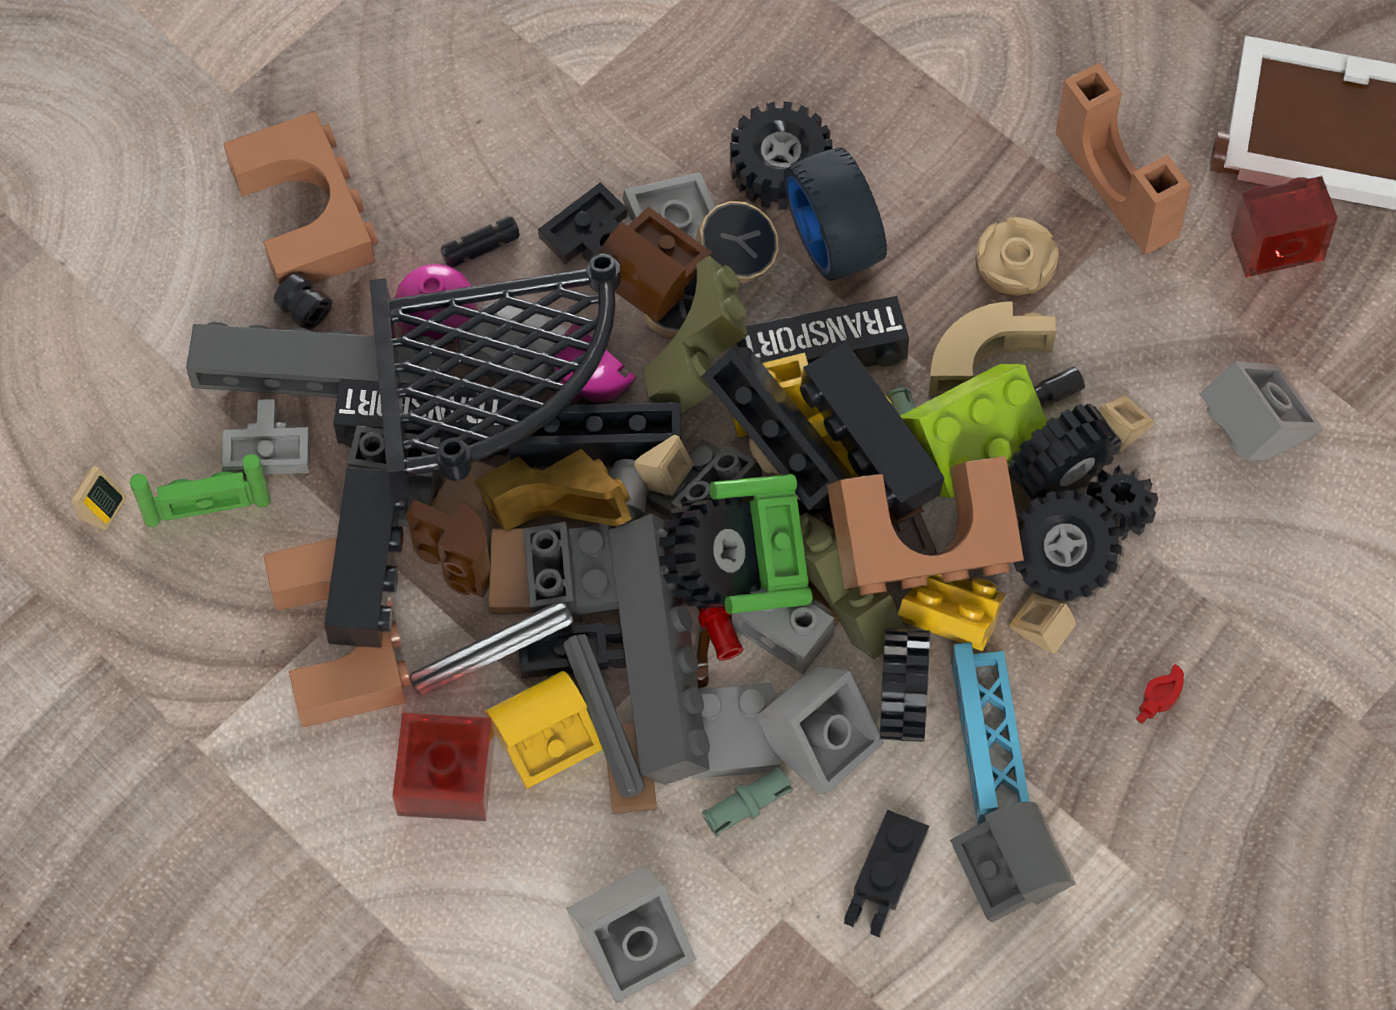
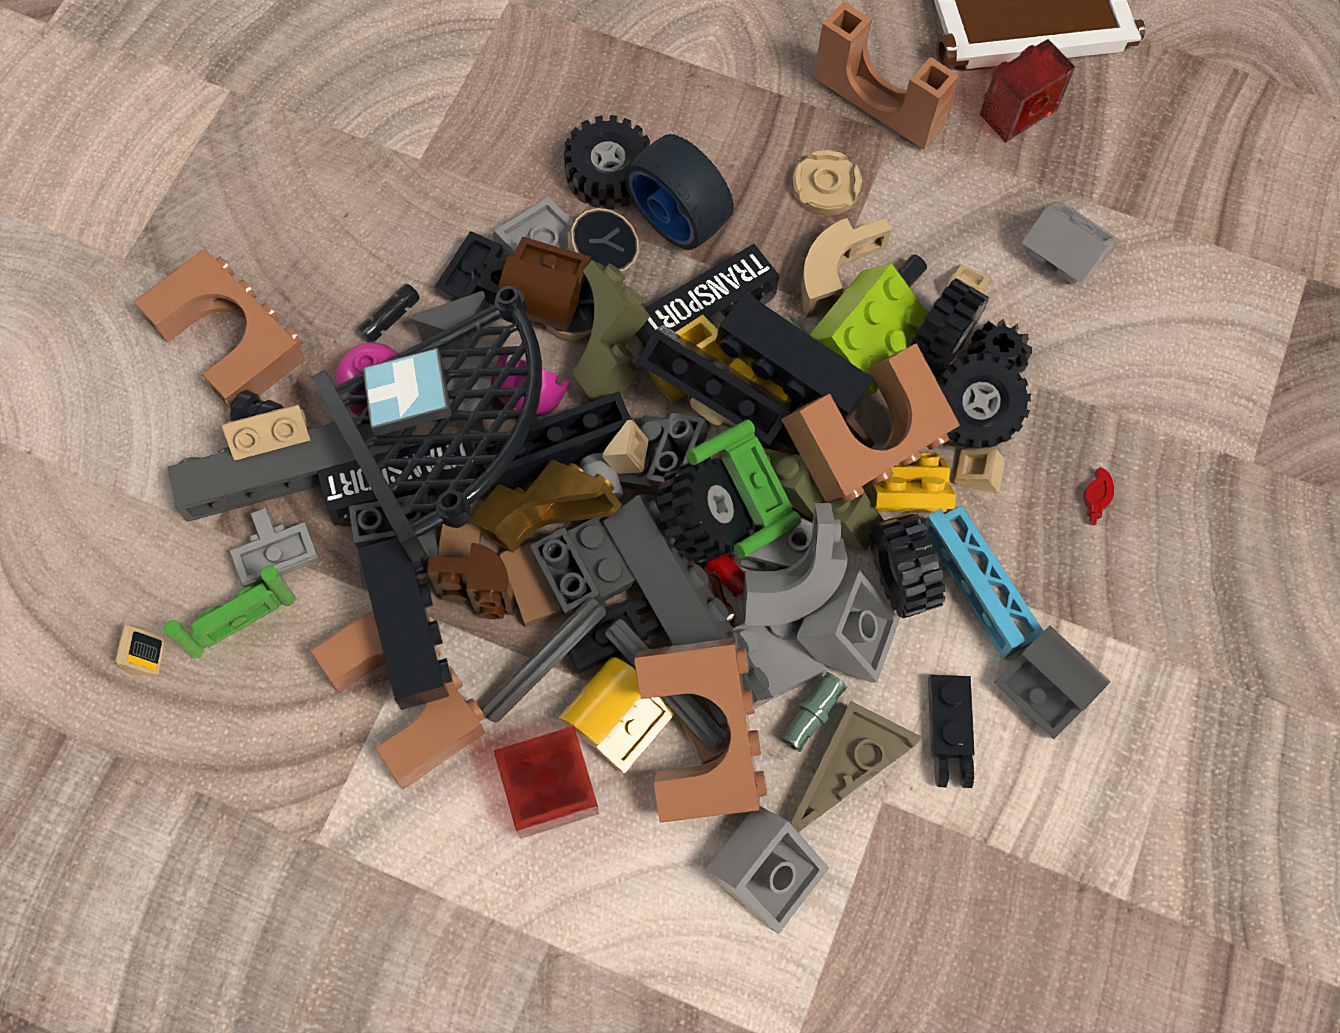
camera: 25 degrees left, 5 degrees up
(304, 322) = (266, 432): none -> tan hinge
(457, 327) = (406, 392): none -> tile
(537, 263) = (449, 314): none -> dark grey slope
(653, 718) = (731, 780): none -> nougat arch
(771, 858) = (856, 753): none -> dark tan wing
(777, 670) = (802, 588): none -> light grey arch

